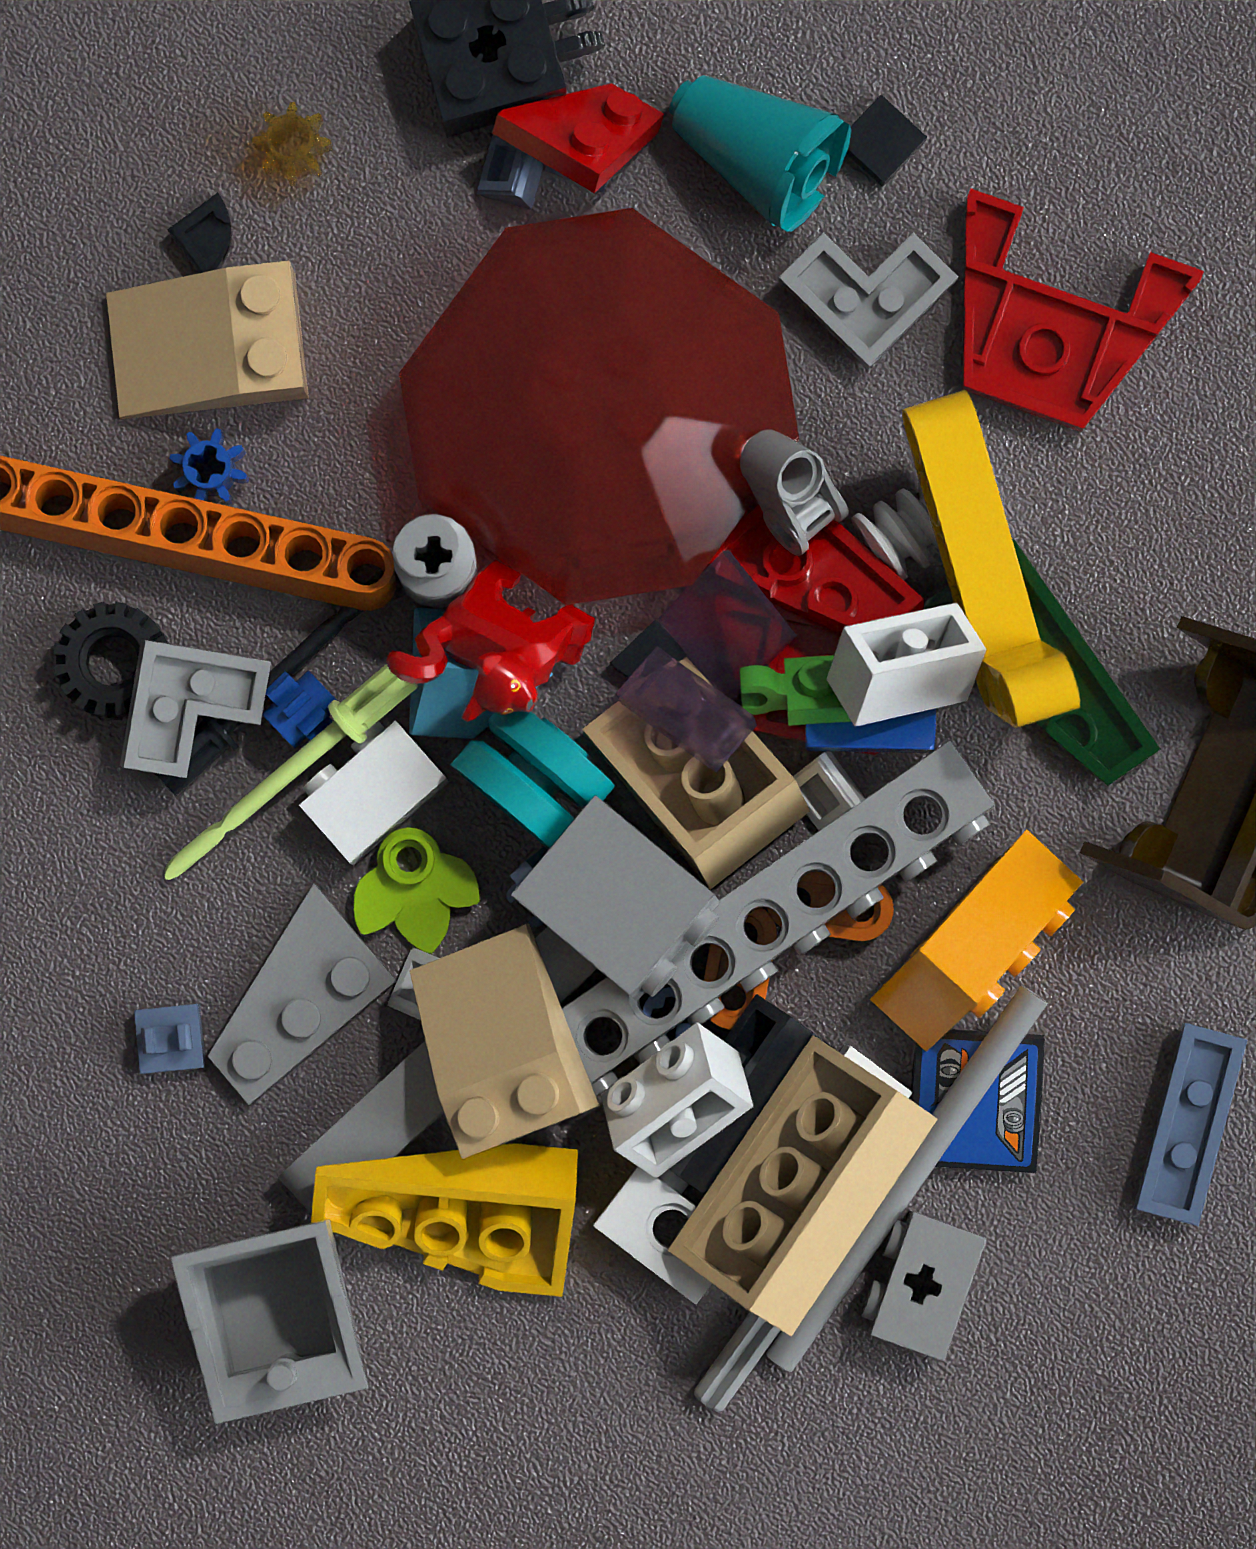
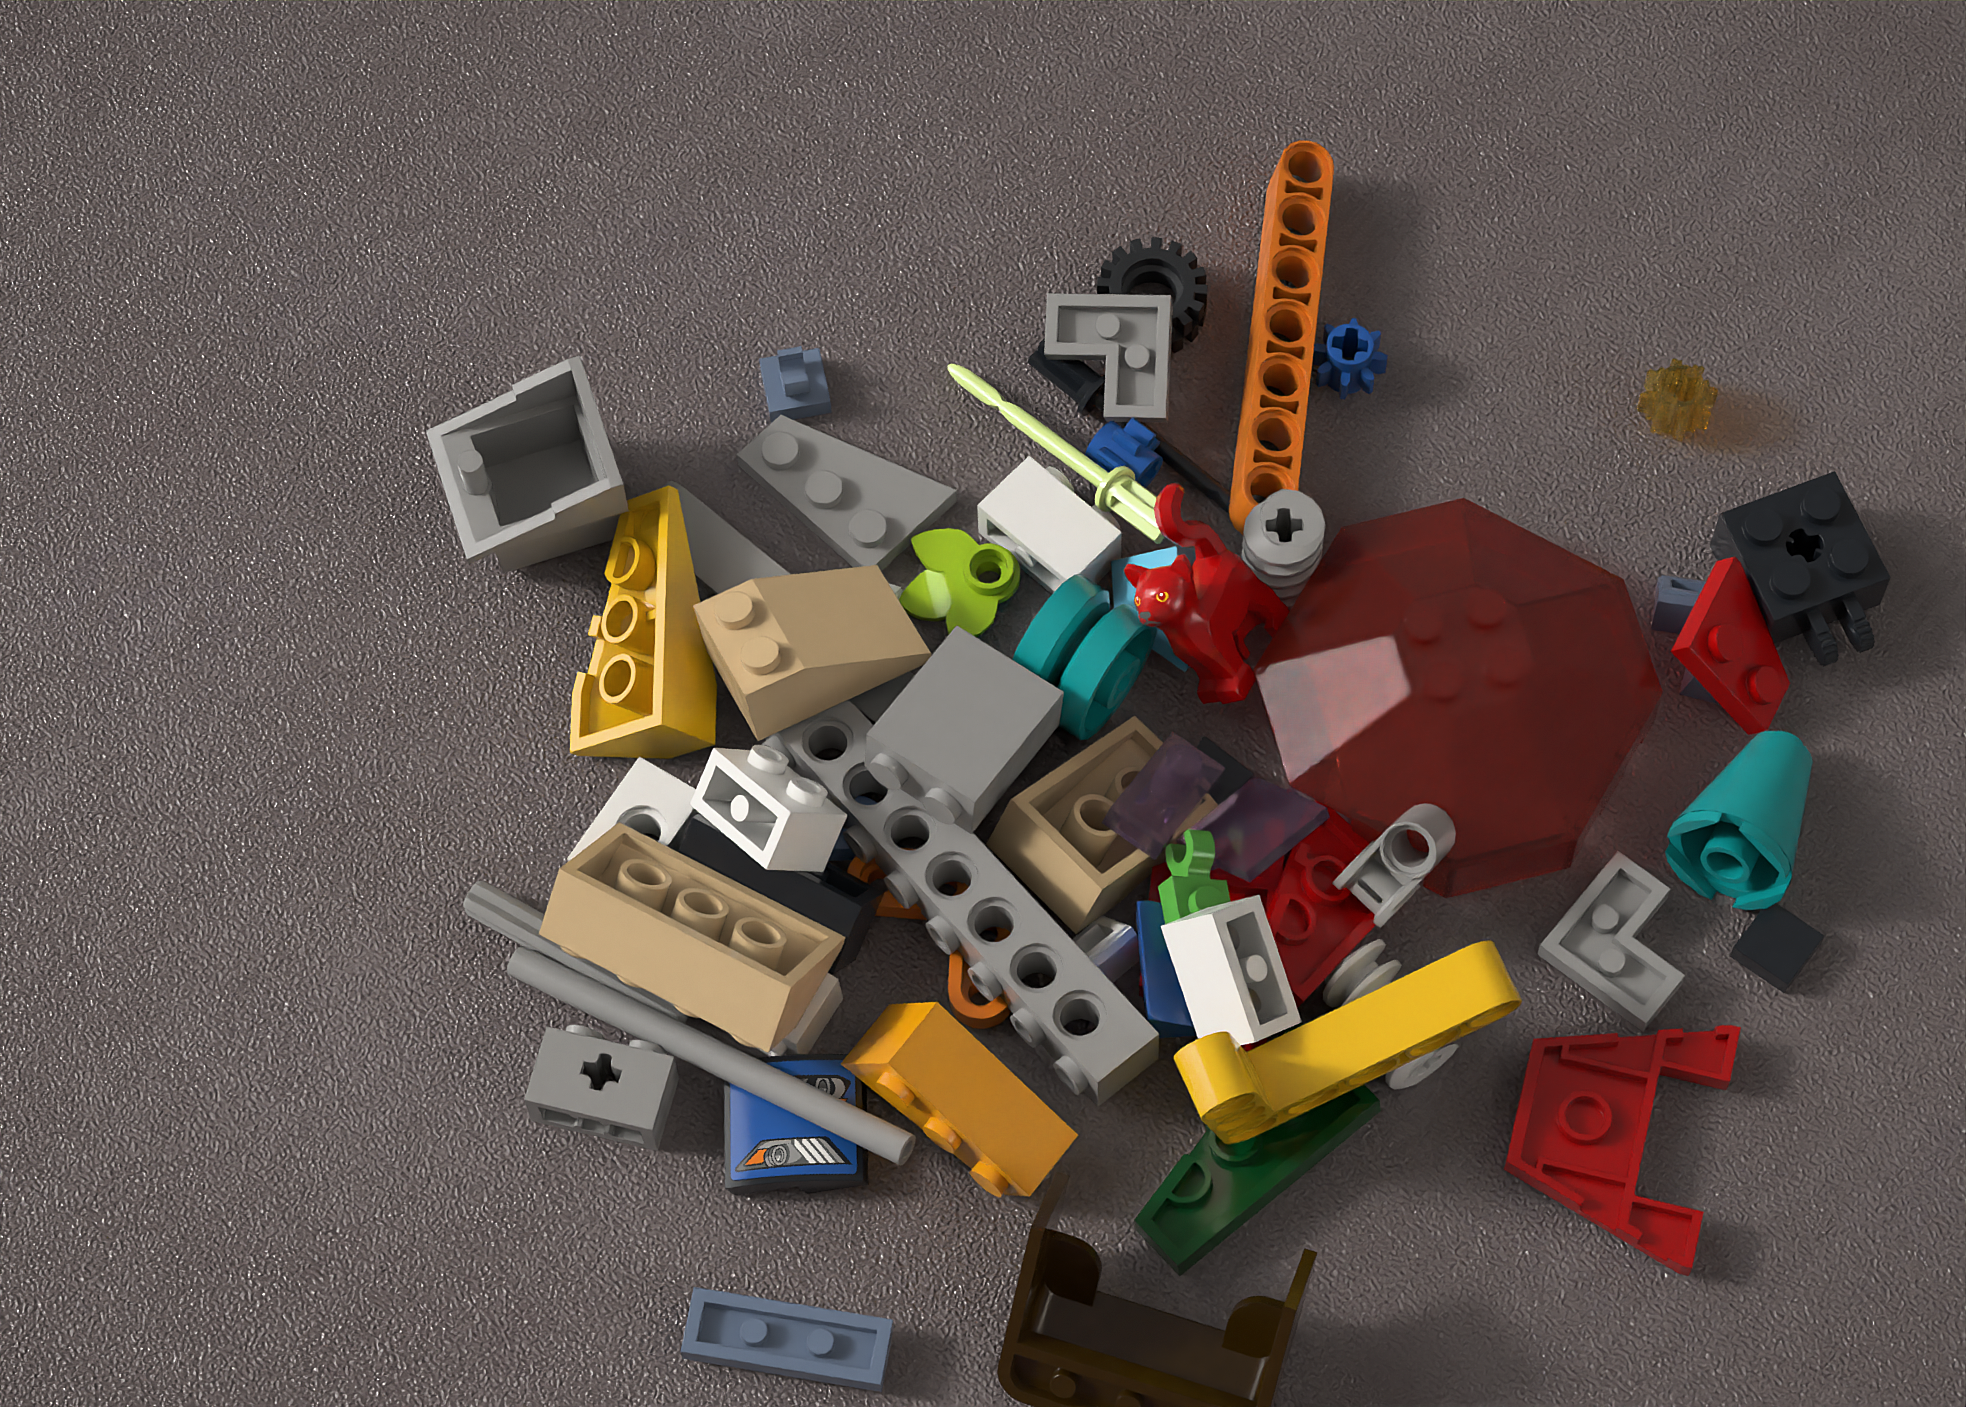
camera: 85 degrees right, 20 degrees down
(205, 234) = (1575, 341): black tile -> none
(208, 341) = (1474, 355): tan slope -> none

